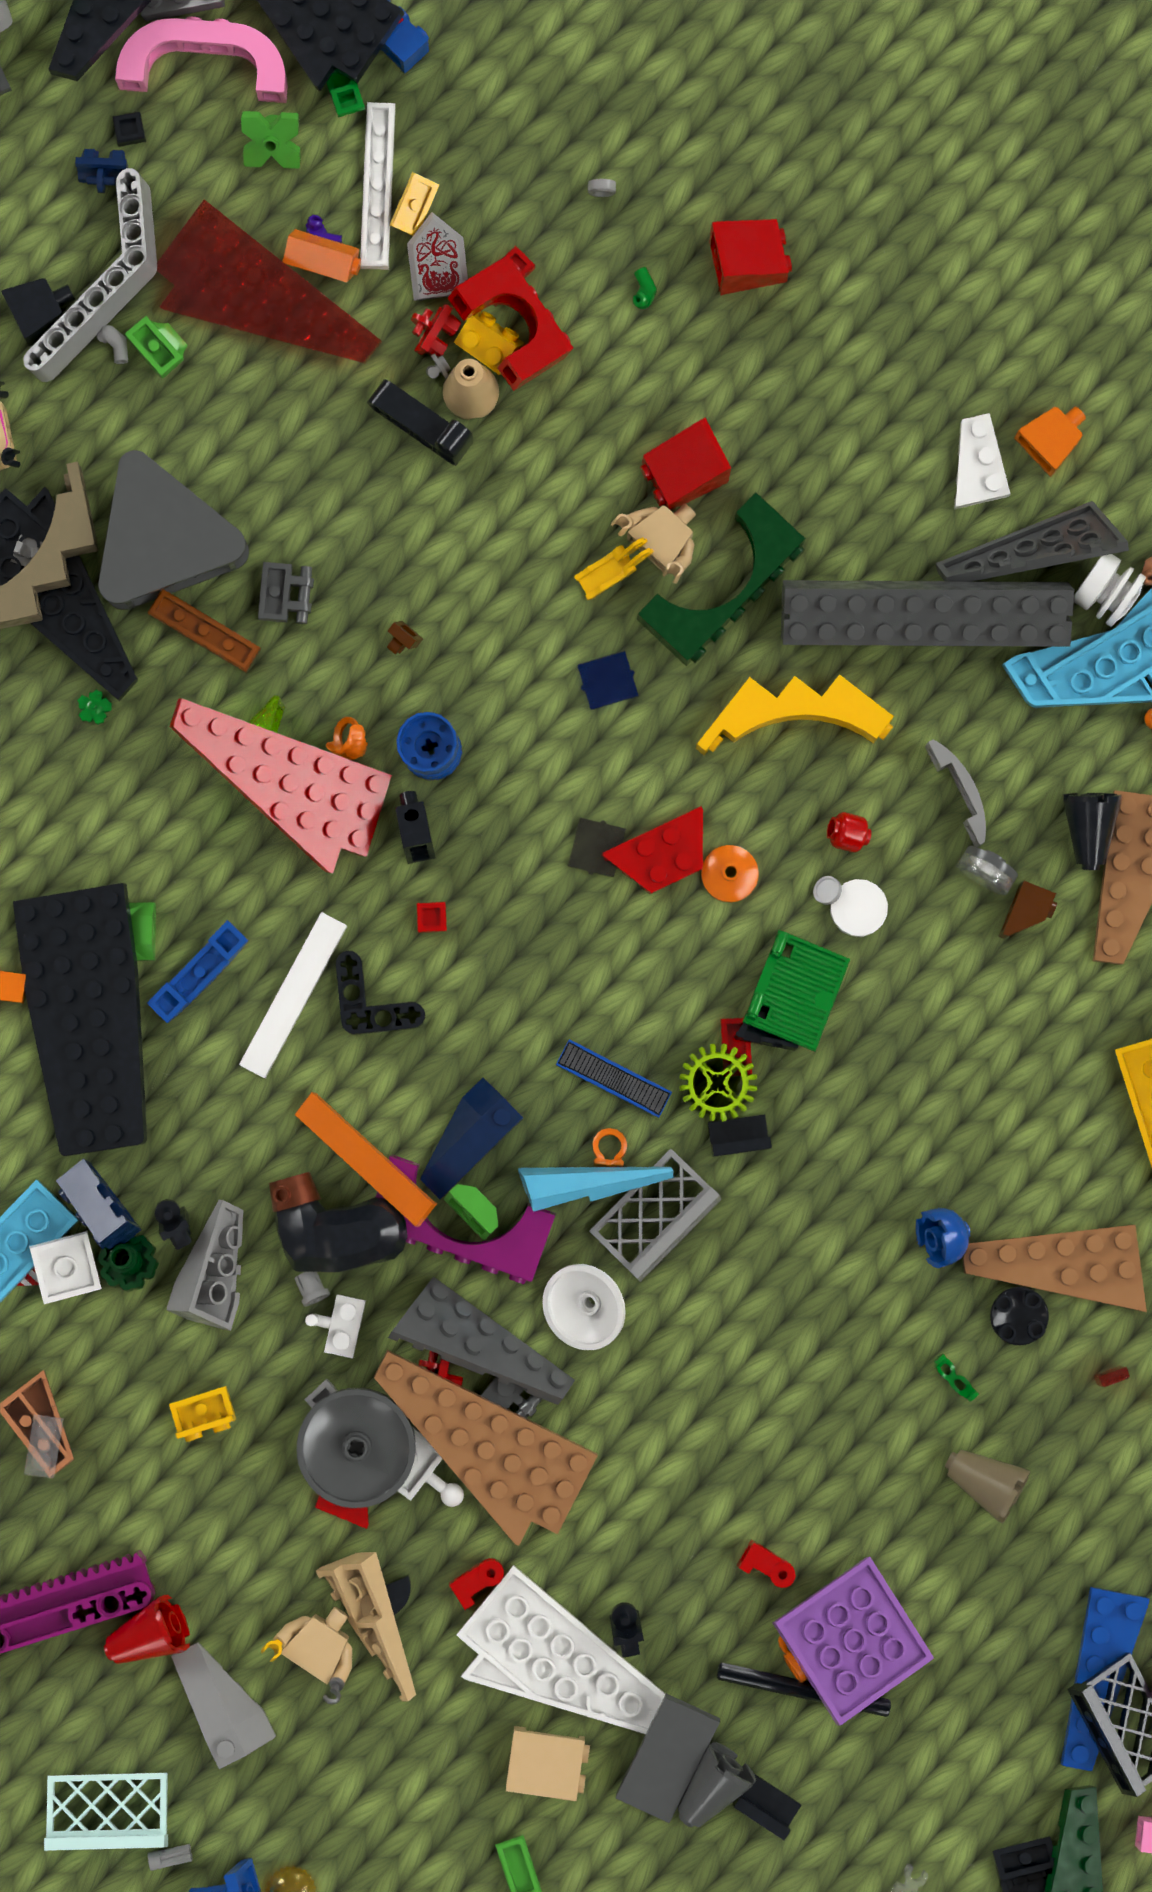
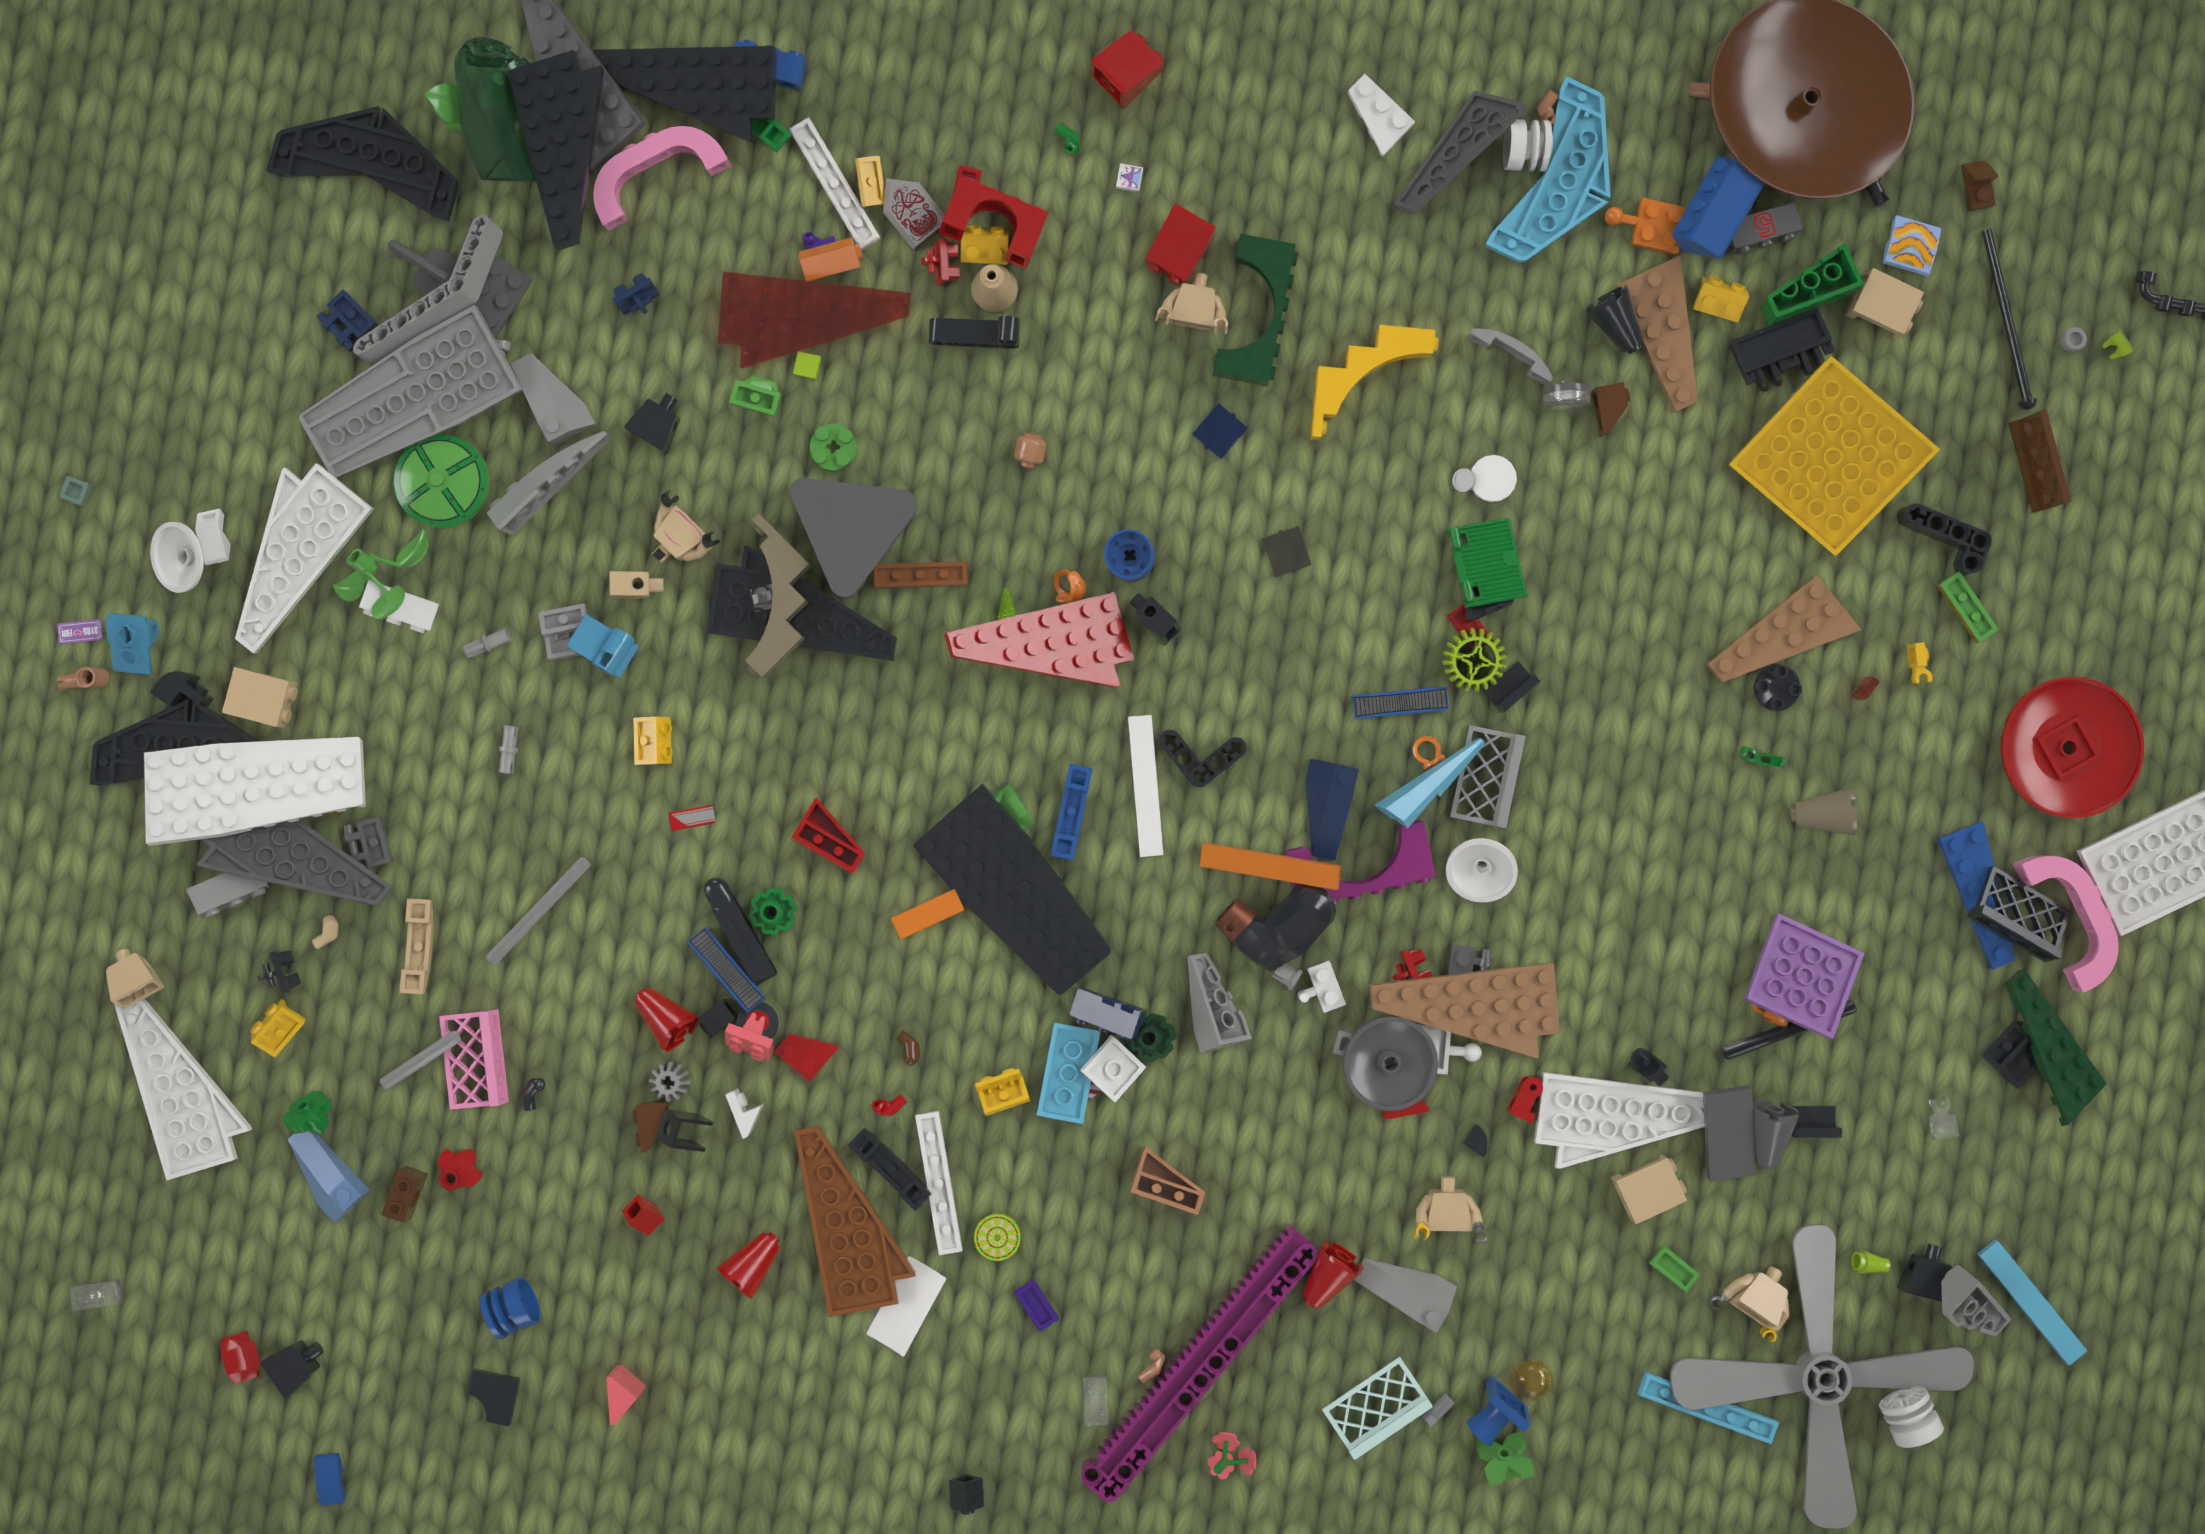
camera: 25 degrees left, 5 degrees up
(44, 1446) = (1181, 1197): clear plate -> none
(45, 358) = (694, 378): light grey beam -> none
(94, 707) = (879, 676): green plant -> none
(117, 340) = (725, 410): light grey arm -> none
(129, 129) = (634, 254): black tile -> none
(173, 1223) = (1168, 992): black hips -> none
(202, 462) = (825, 436): none -> bright green plate
(203, 1412) = (1270, 1106): yellow bracket -> none
(229, 348) = (807, 365): none -> lime tile
(271, 138) = (739, 197): bright green plant -> none
(276, 590) = (952, 515): dark grey plate -> none
(362, 1590) = (1455, 1155): tan wedge -> none
(399, 575) = (1030, 449): none -> nougat head
(403, 637) = (1061, 490): reddish brown tile -> none
(431, 917) = (1206, 672): red plate -> none
(440, 366) = (963, 285): light grey plate -> none
(473, 1209) = (1366, 852): bright green slope -> none
(474, 1341) = (1420, 941): dark grey wing -> none
(601, 187) = (993, 85): light grey tile -> none
(611, 568) = (1173, 352): yellow arm -> none
(663, 853) = (1335, 526): red wing -> none
(681, 367) = (1129, 178): none -> tile
(722, 886) = (1380, 519): orange dish -> none
(778, 1569) = (1712, 961): red leg -> none
(848, 832) = (1453, 430): red head -> none
(926, 613) = (1412, 243): dark grey piece -> none
(944, 1236) = (1693, 666): blue cylinder -> none
(1051, 437) = (1419, 63): orange torso -> none

